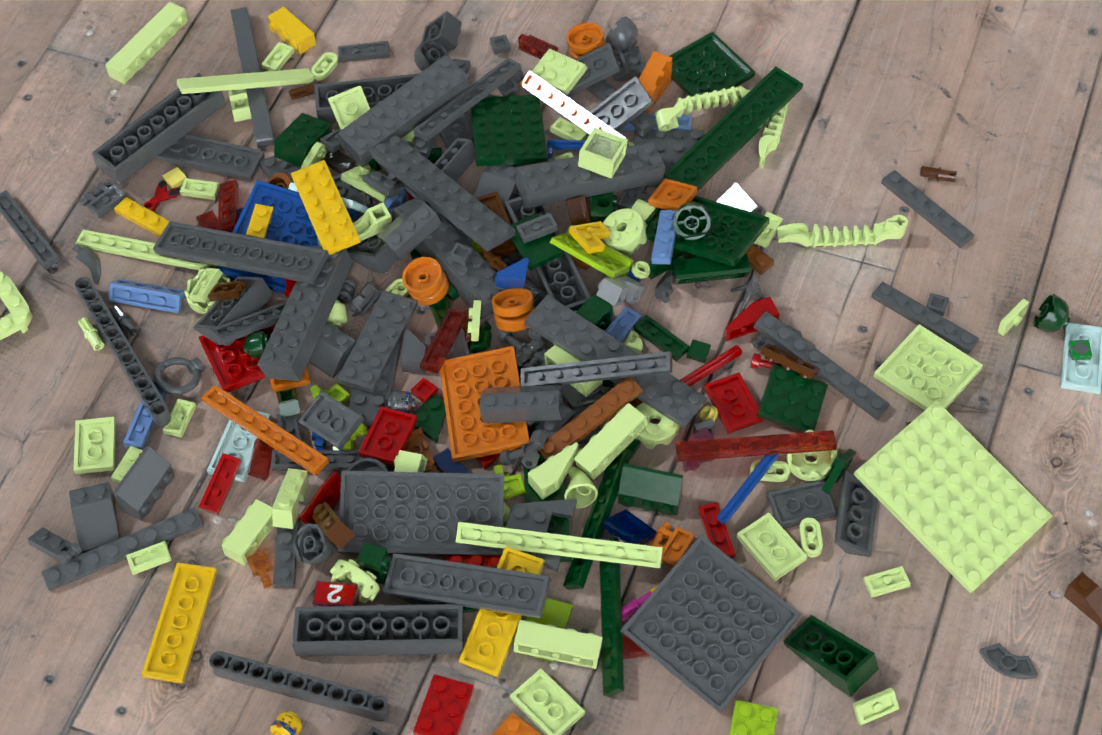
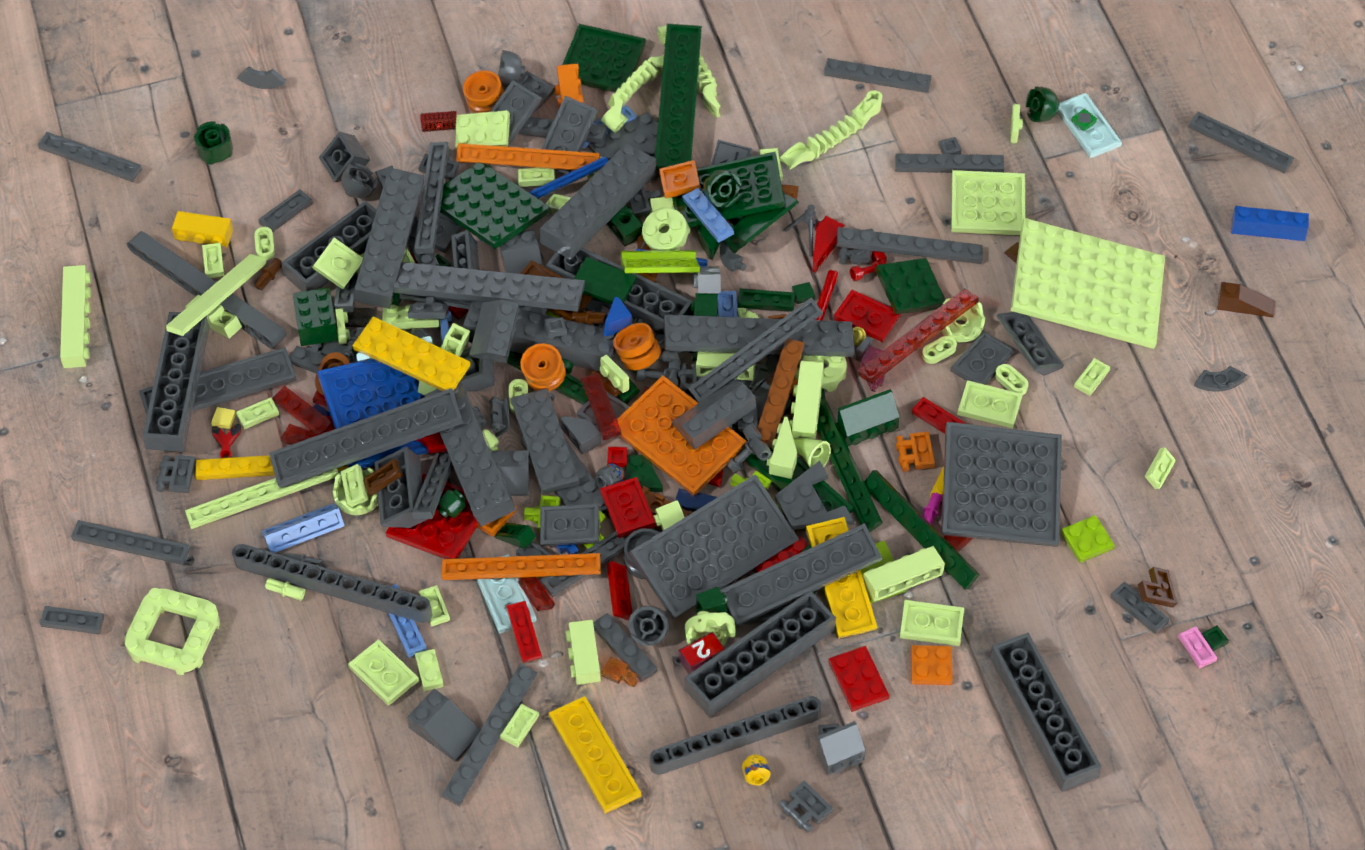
camera: 40 degrees left, 0 degrees up
(54, 545) = (433, 767): dark grey plate -> none
(87, 257) = (216, 531): dark grey bar -> none
(143, 484) = (463, 672): dark grey slope -> none
(194, 366) = (405, 558): dark grey piece -> none
(260, 221) = (354, 403): yellow plate -> none
(293, 489) = (593, 598): yellowish green arch -> none
(332, 525) = (661, 597): reddish brown arch -> none
(500, 44) = (404, 136): dark grey plate -> none
(537, 228) = (601, 268): dark grey plate -> none
(559, 545) = (841, 501): yellowish green plate -> none
(578, 211) = (613, 240): reddish brown plate -> none
(589, 236) = (648, 249): yellow plate -> none
(602, 152) = (605, 173): yellowish green piece -> none
(629, 528) = (878, 458): clear blue plate -> none
(641, 270) = (705, 254): yellowish green plate -> none
(746, 488) = (937, 372): blue axle -> none
(789, 361) = (888, 256): reddish brown plate -> none
(832, 655) = (1101, 452): dark green slope -> none
(839, 465) = (991, 312): dark green wing -> none
(938, 174) = (863, 42): reddish brown axle -> none

